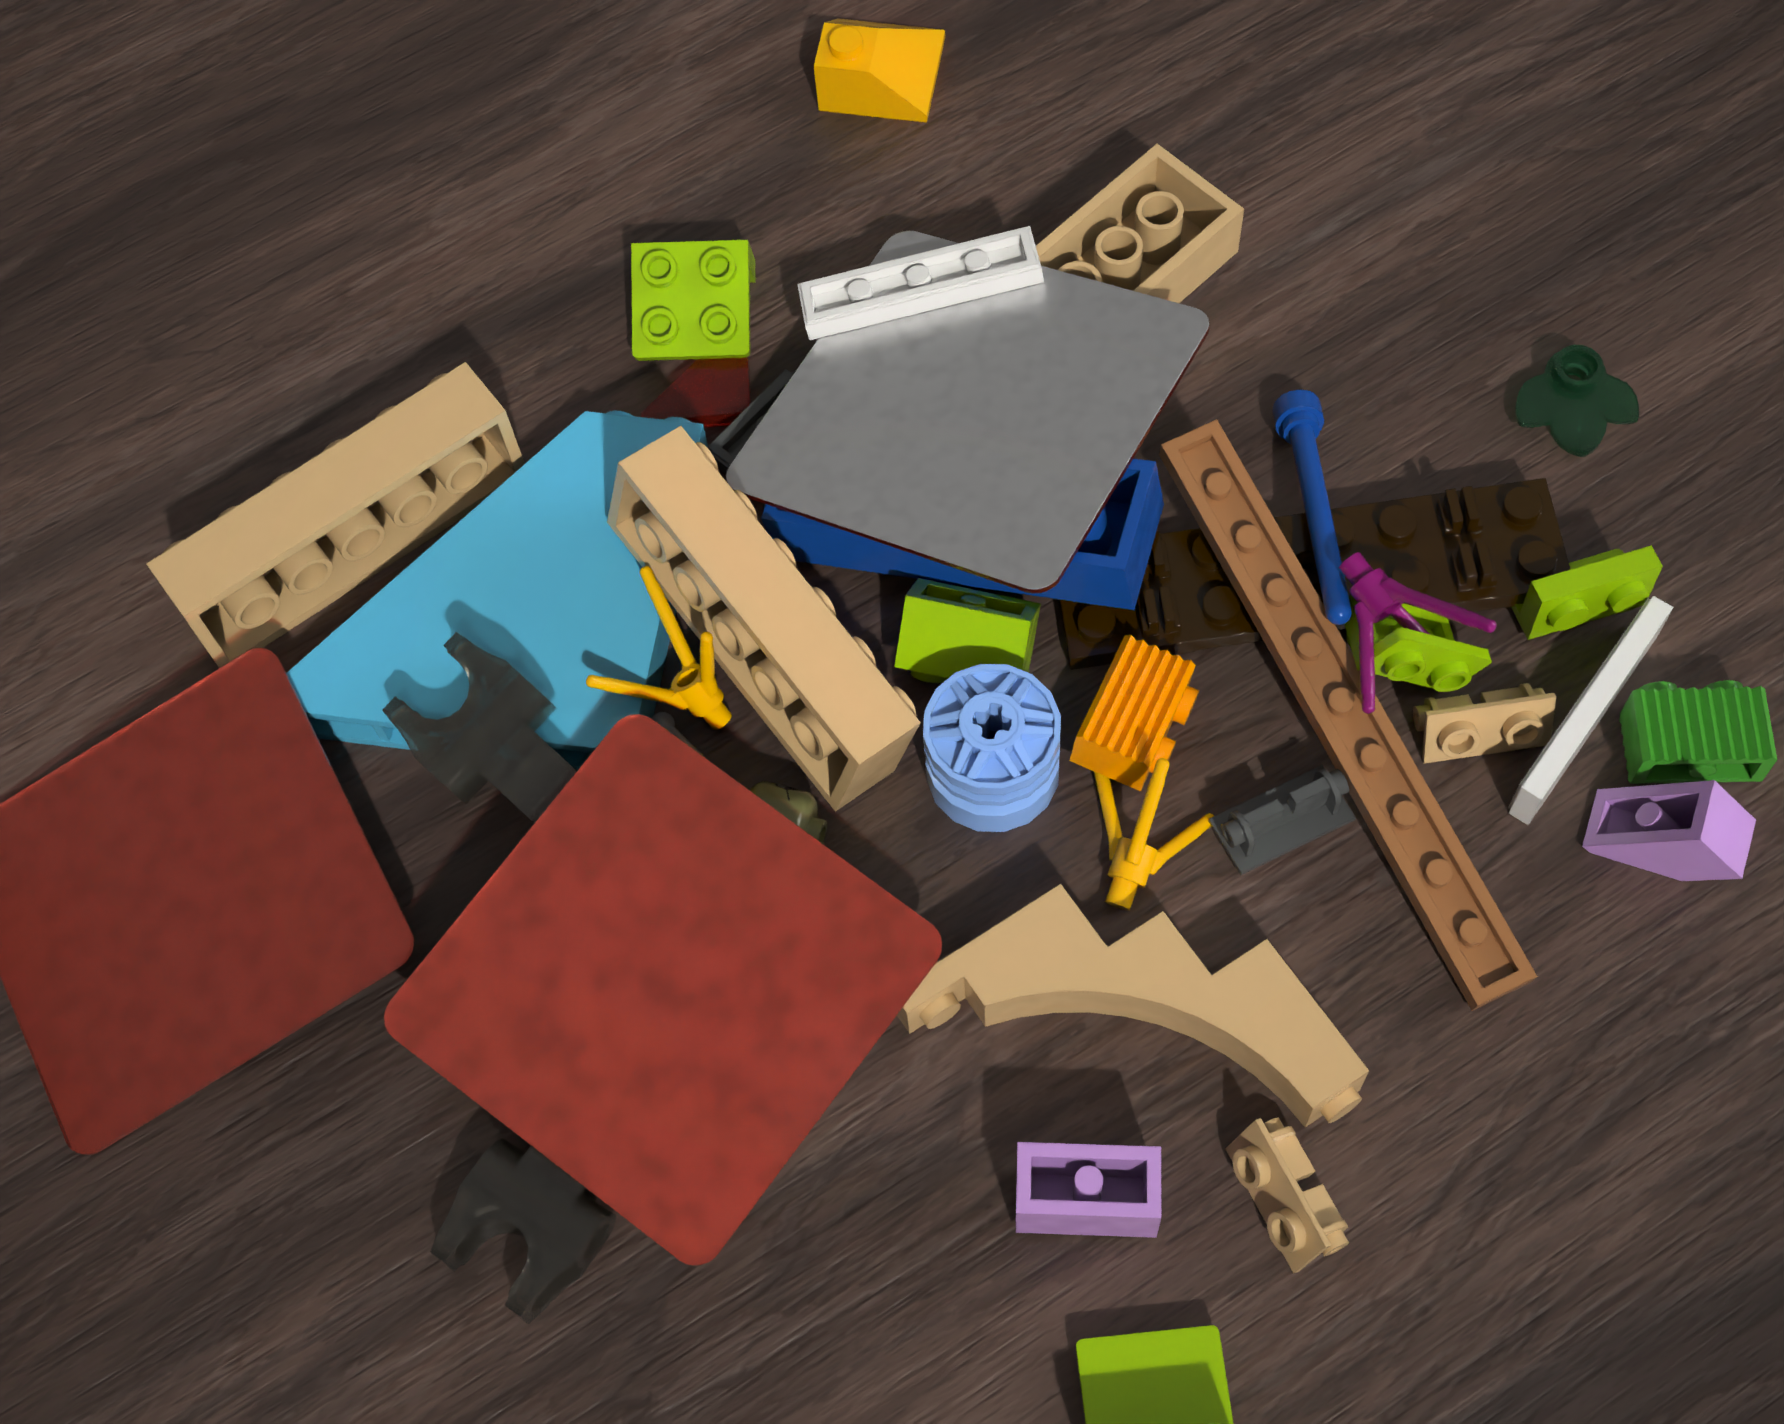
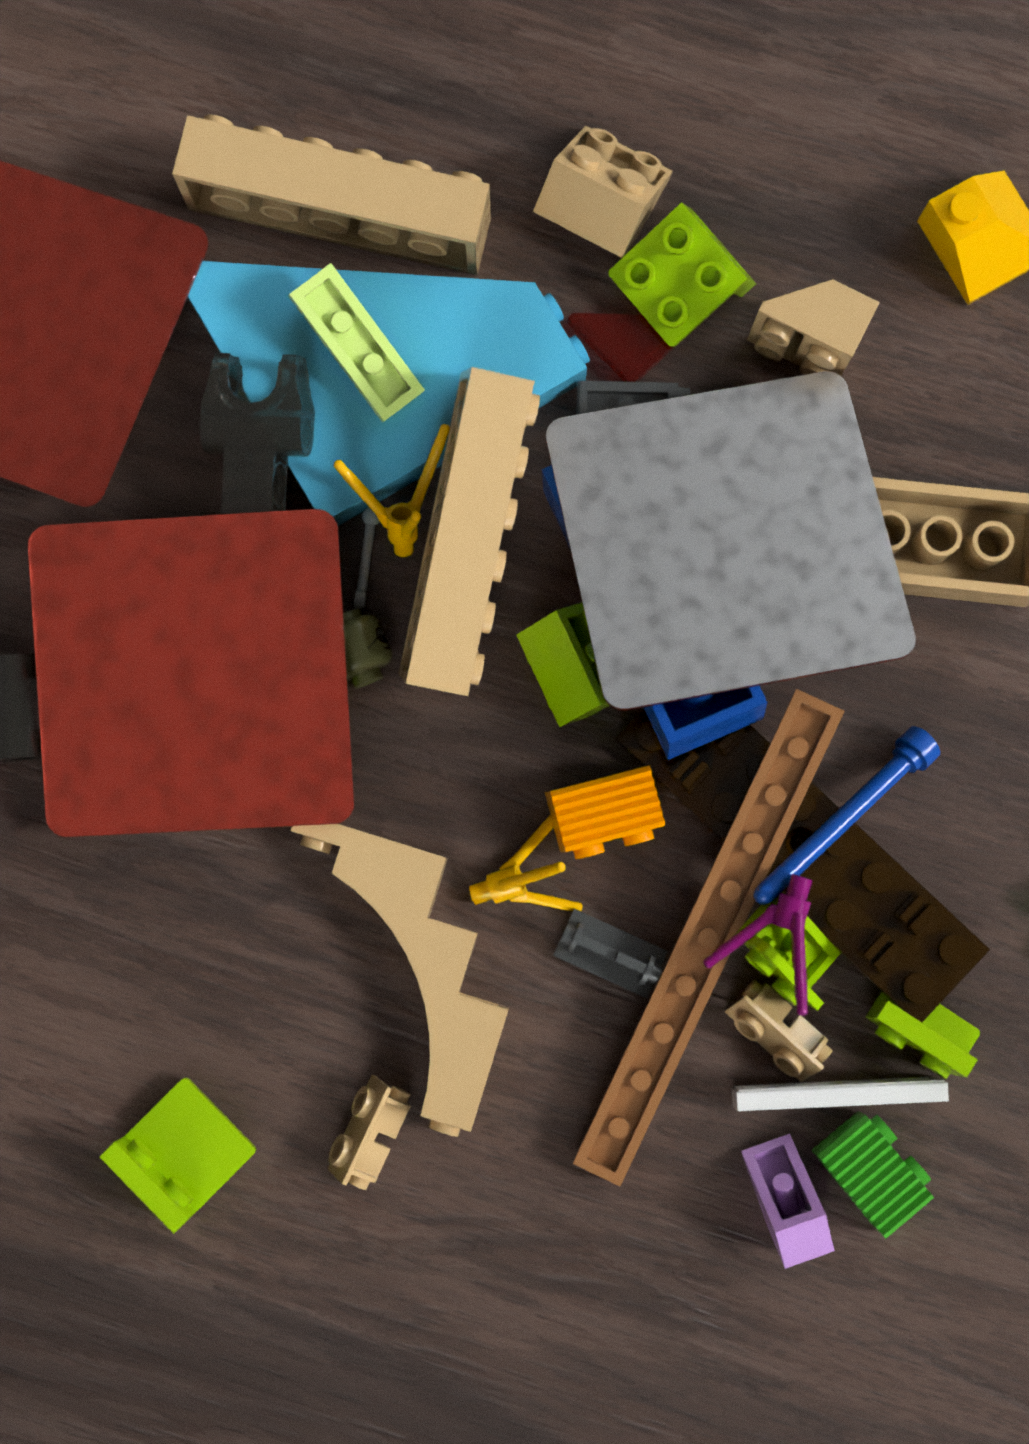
camera: 45 degrees right, 20 degrees up
(494, 584) = (356, 342): none -> yellowish green hinge
(558, 311) = (602, 190): none -> tan slope
(840, 216) = (813, 326): none -> tan slope
(920, 283) = (800, 427): white tile -> none
(1000, 779) = (493, 769): light blue wheel -> none
(1088, 1189) = (269, 1019): lavender brick -> none

